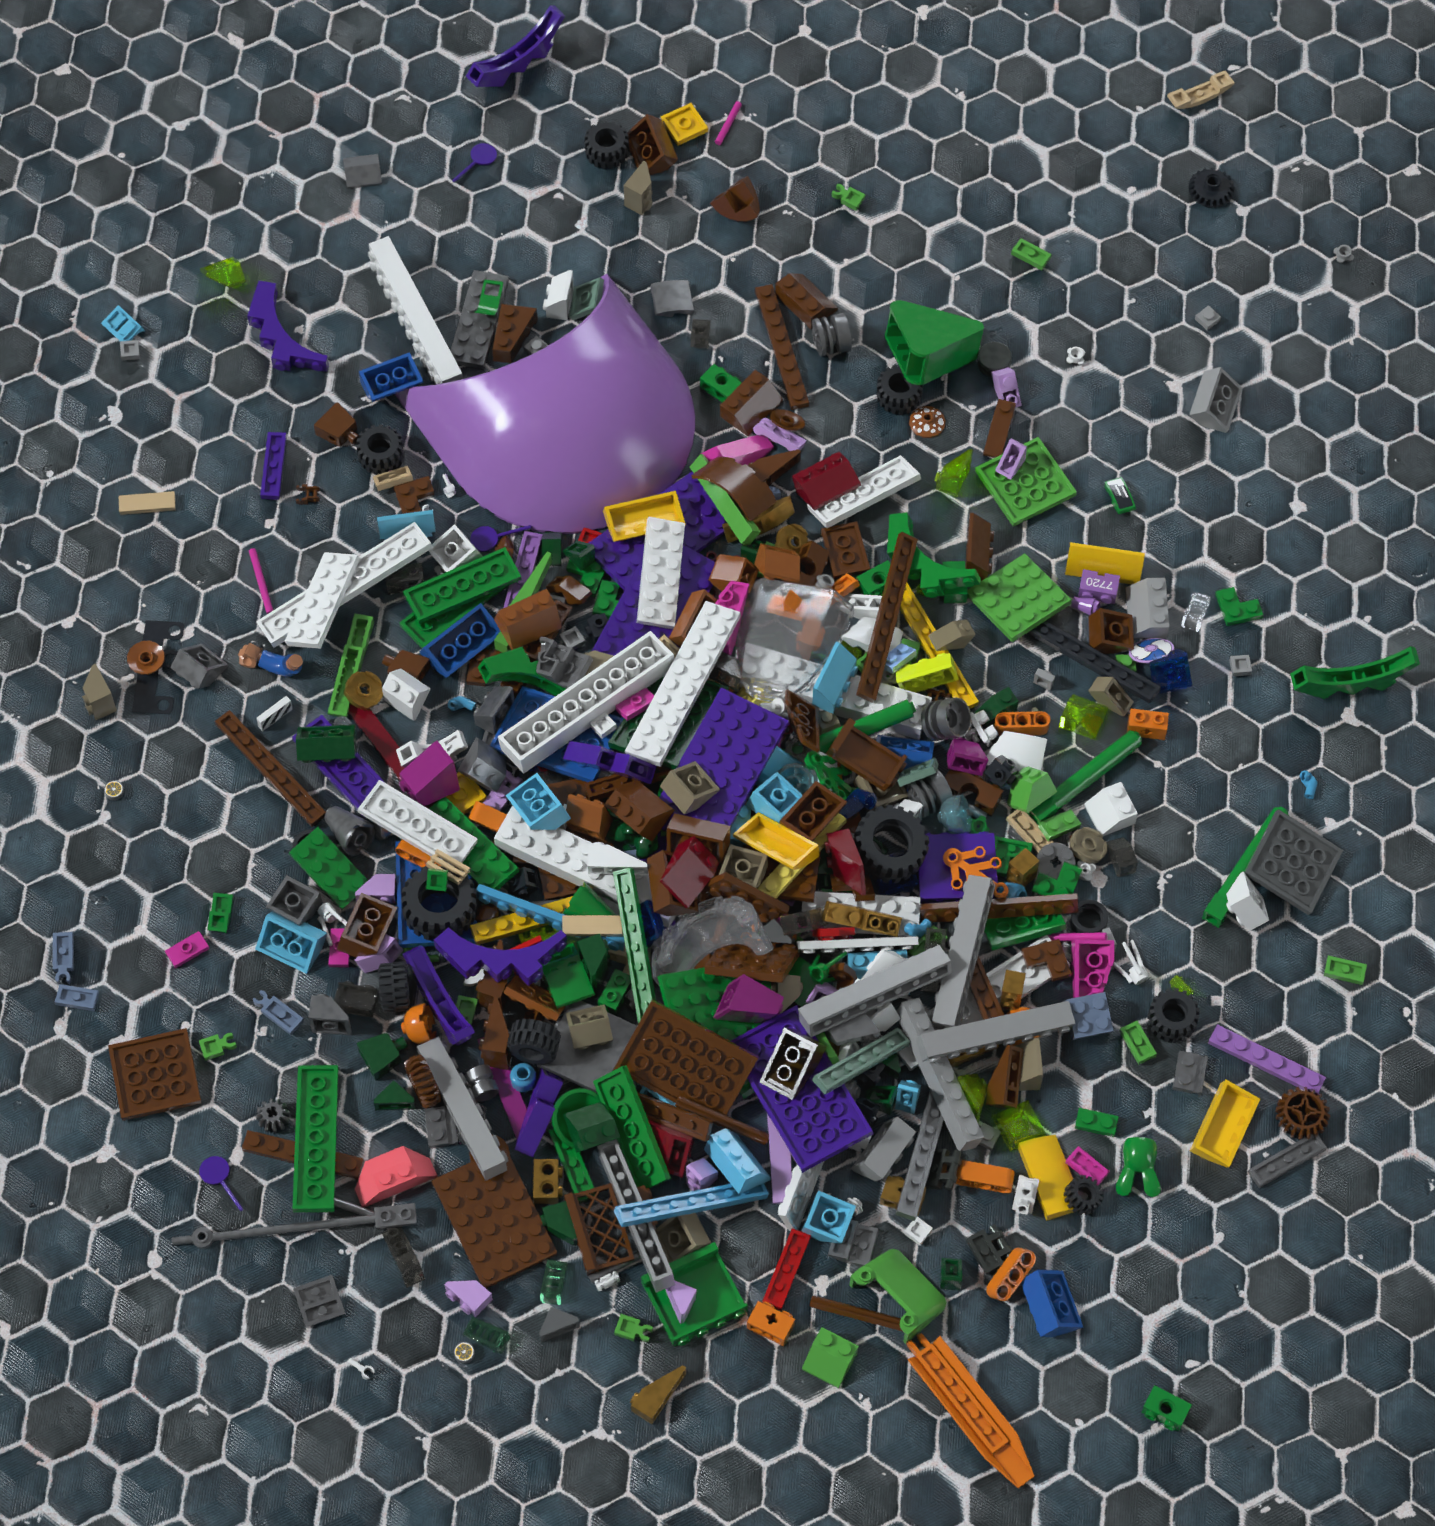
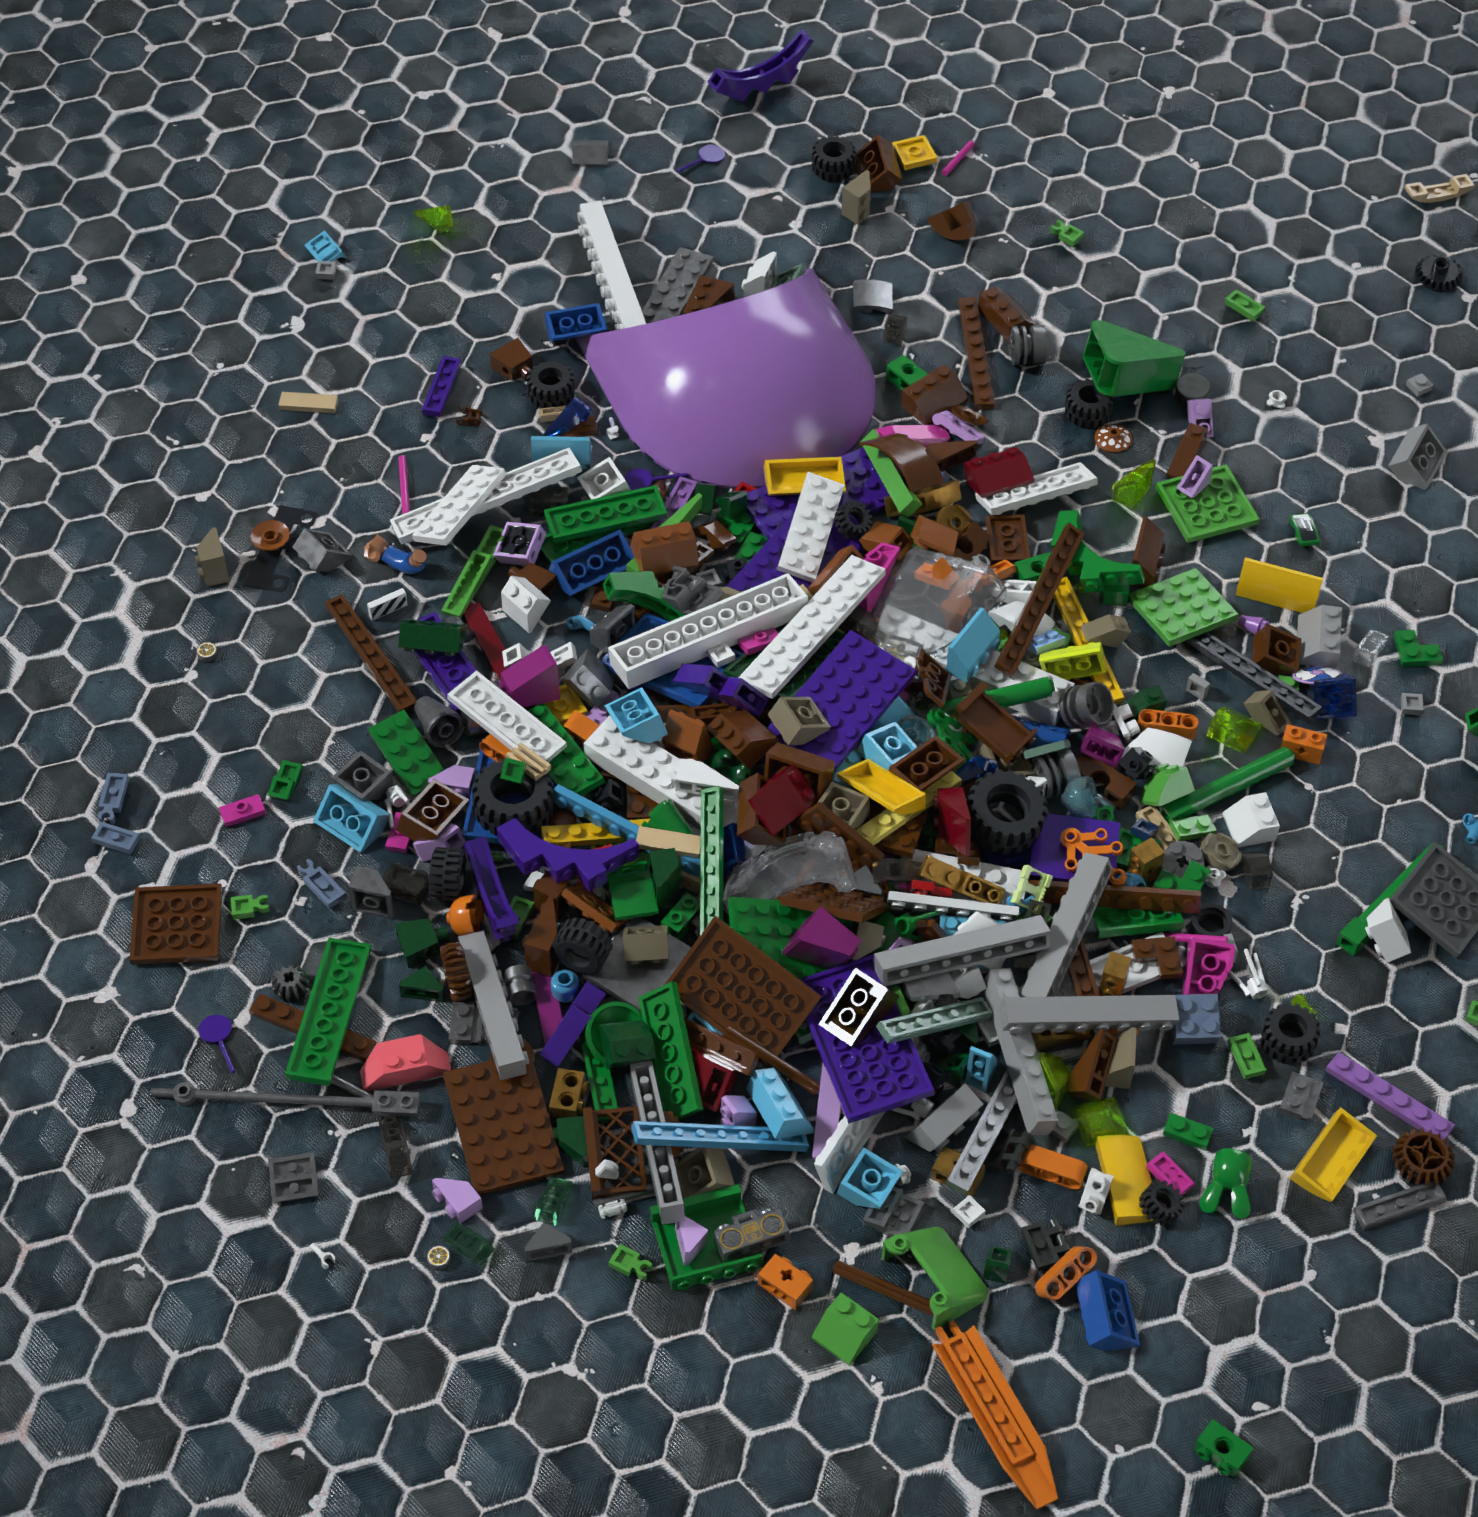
camera: 10 degrees right, 10 degrees down
(272, 335) = (477, 288): dark purple arch -> none
(354, 694) = (478, 603): pearl gold plate -> none
(387, 630) = (520, 543): none -> piece
(406, 486) = (574, 413): none -> clear blue piece
(489, 304) = (687, 275): green piece -> none
(597, 1249) = (607, 1169): none -> white tile
(655, 1395) = (641, 1337): pearl gold slope -> none
(707, 554) = (859, 513): none -> black tyre
(735, 1288) = (750, 1234): none -> flat silver piece
(786, 1268) = (814, 1227): red plate -> none
(919, 914) = (1024, 885): none -> yellowish green piece
(1016, 835) = (1144, 829): none -> dark blue tile
(1099, 587) = (1271, 608): medium lavender brick -> none

